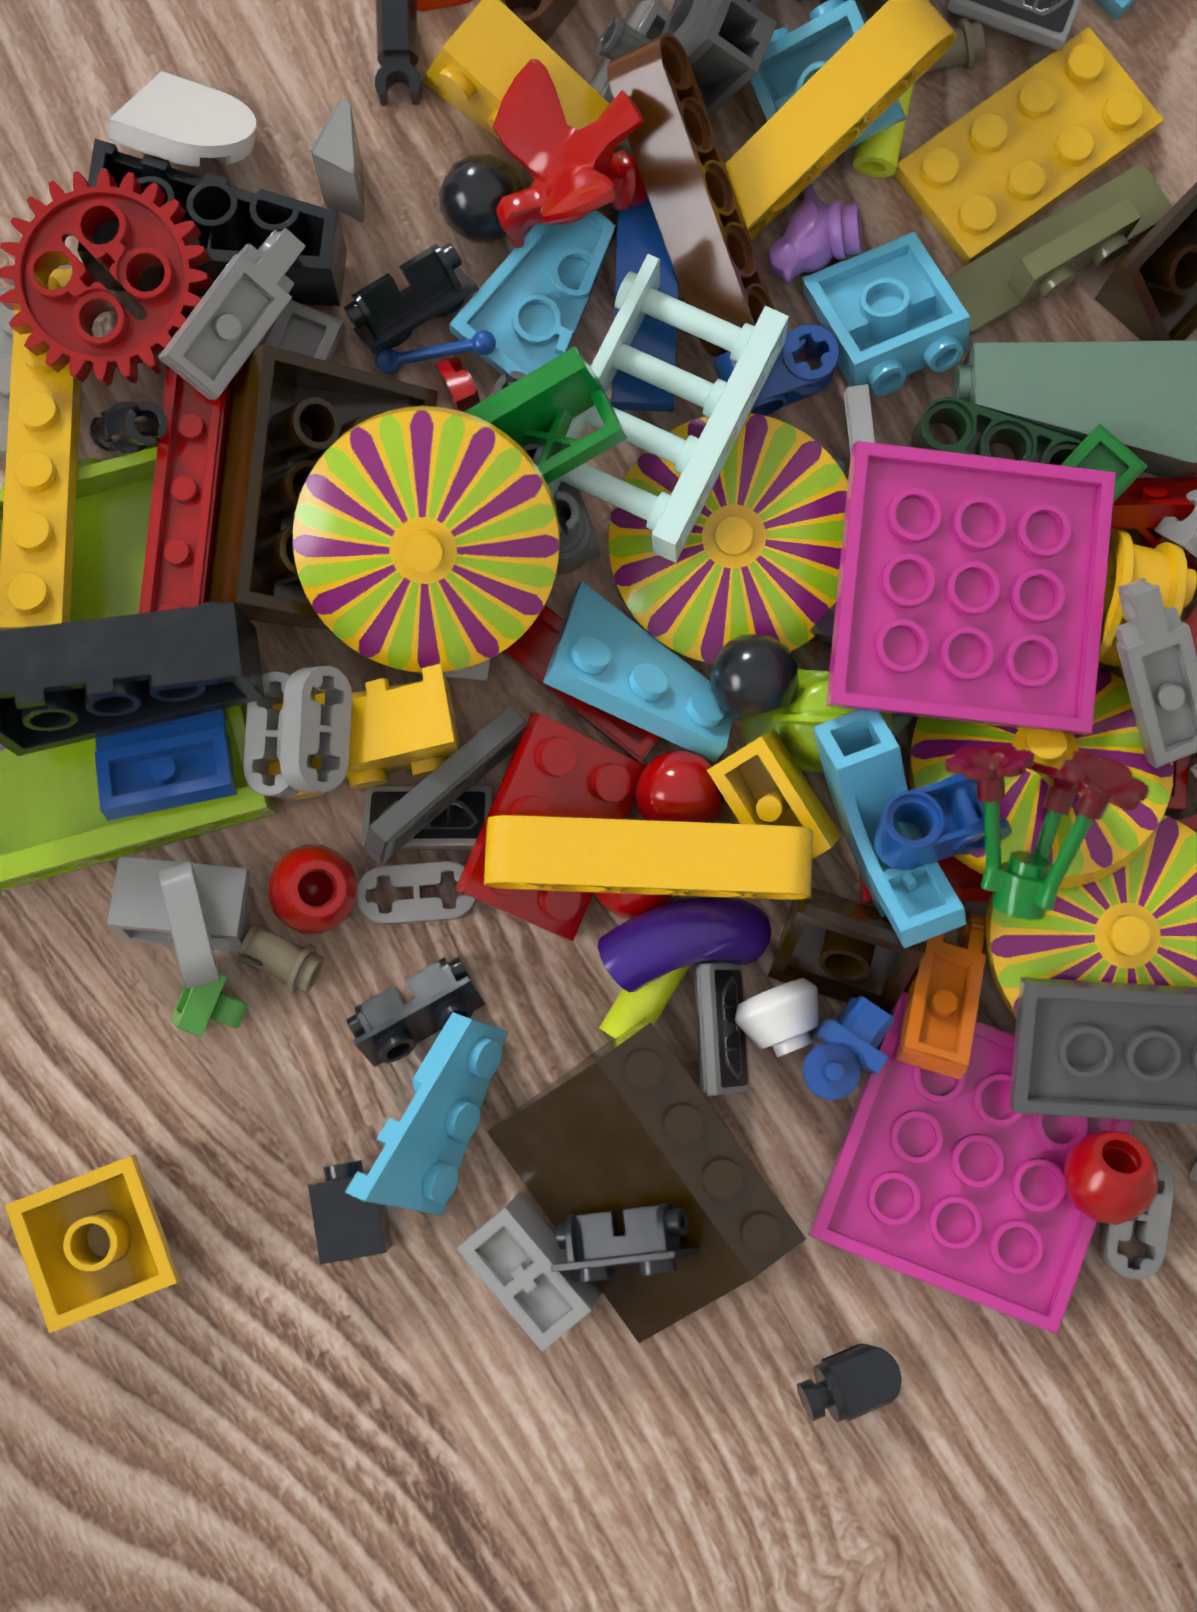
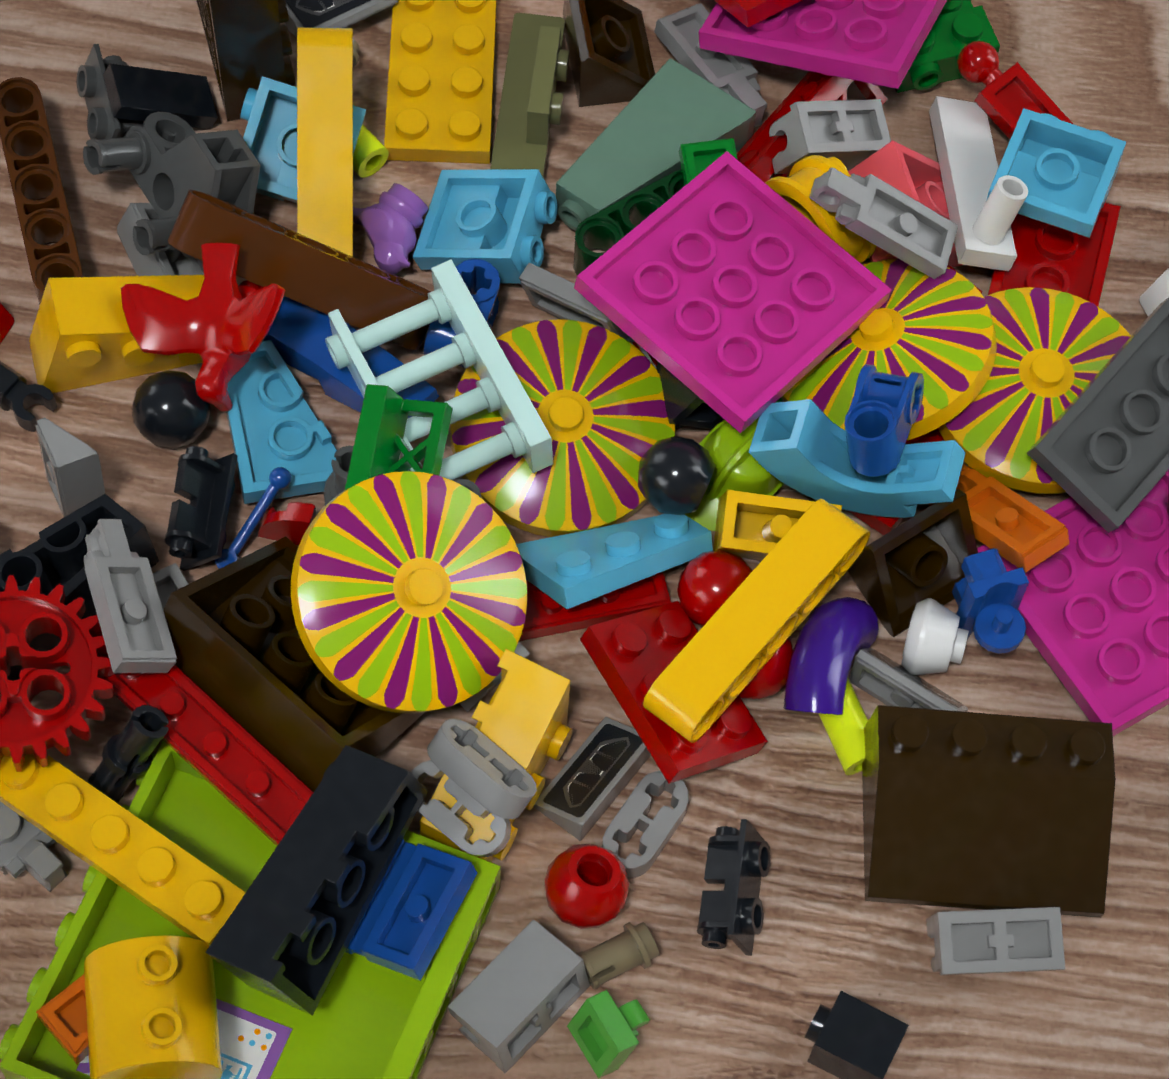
camera: 55 degrees left, 20 degrees down
(189, 925) = (551, 975): light grey beam -> none
(430, 1140) = (839, 934): medium azure wing -> none
(444, 786) = (587, 734): dark grey tile -> none
(650, 1241) = (1018, 869): hinge -> none
(1025, 883) = (966, 390): plant -> none

